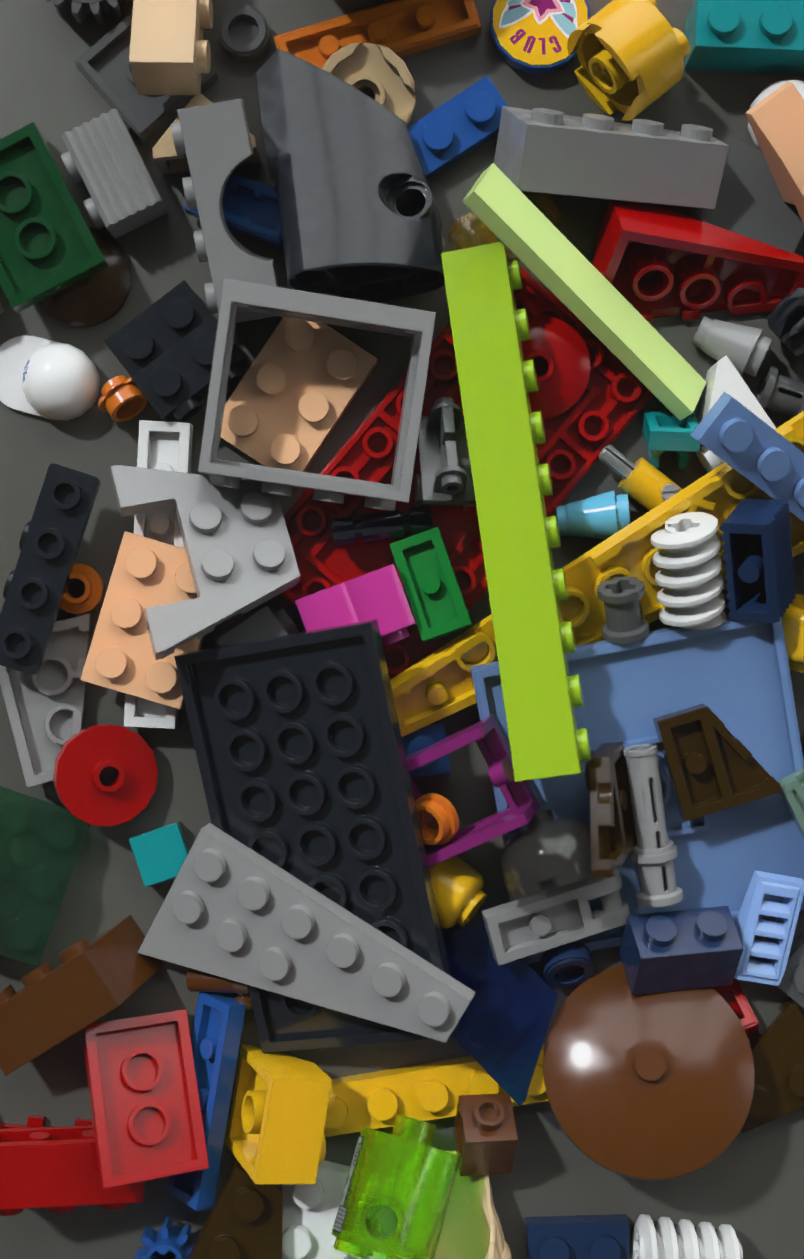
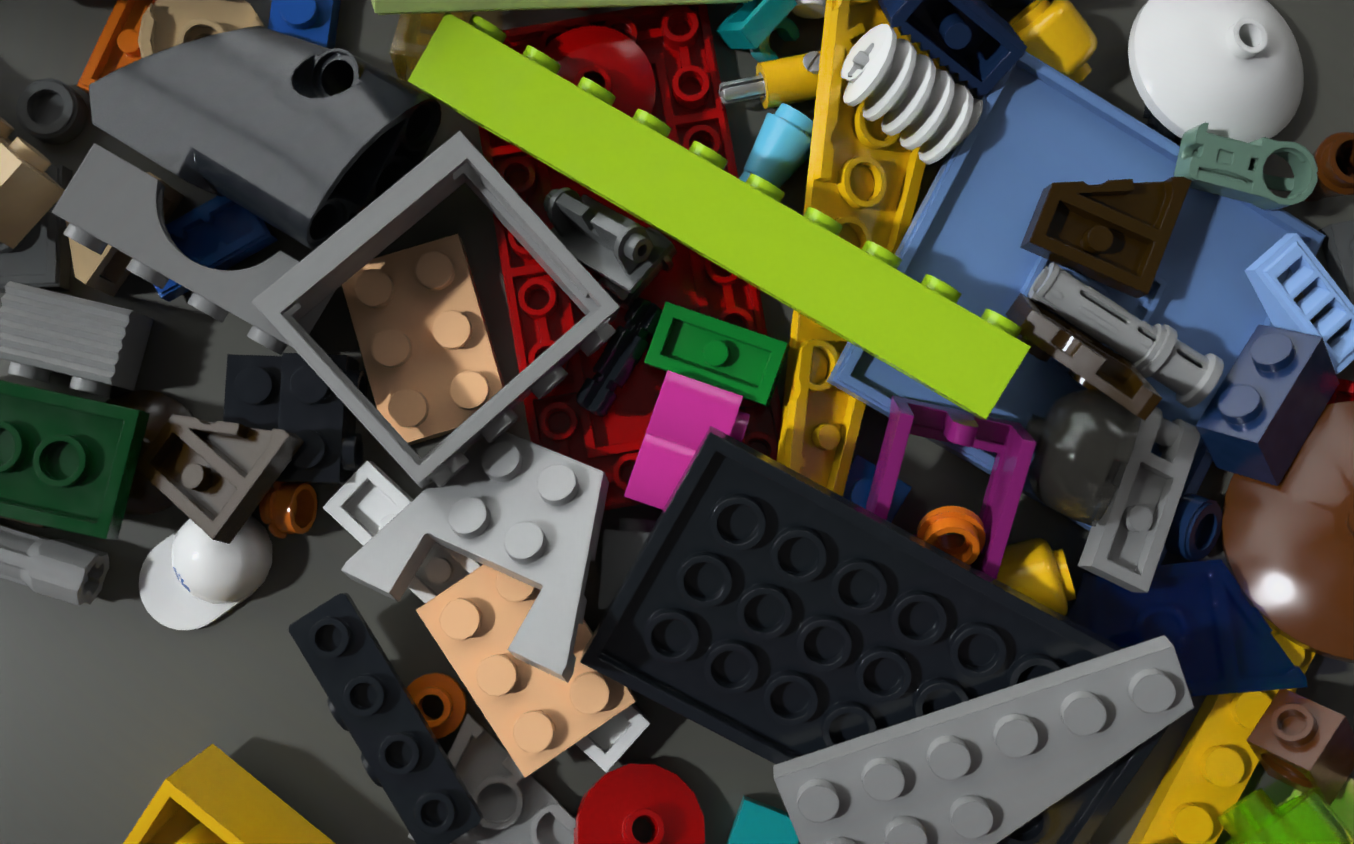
camera: 50 degrees left, 5 degrees down
(108, 337) = (216, 469): none -> dark brown wing
(623, 610) = (893, 189): dark grey bush -> none

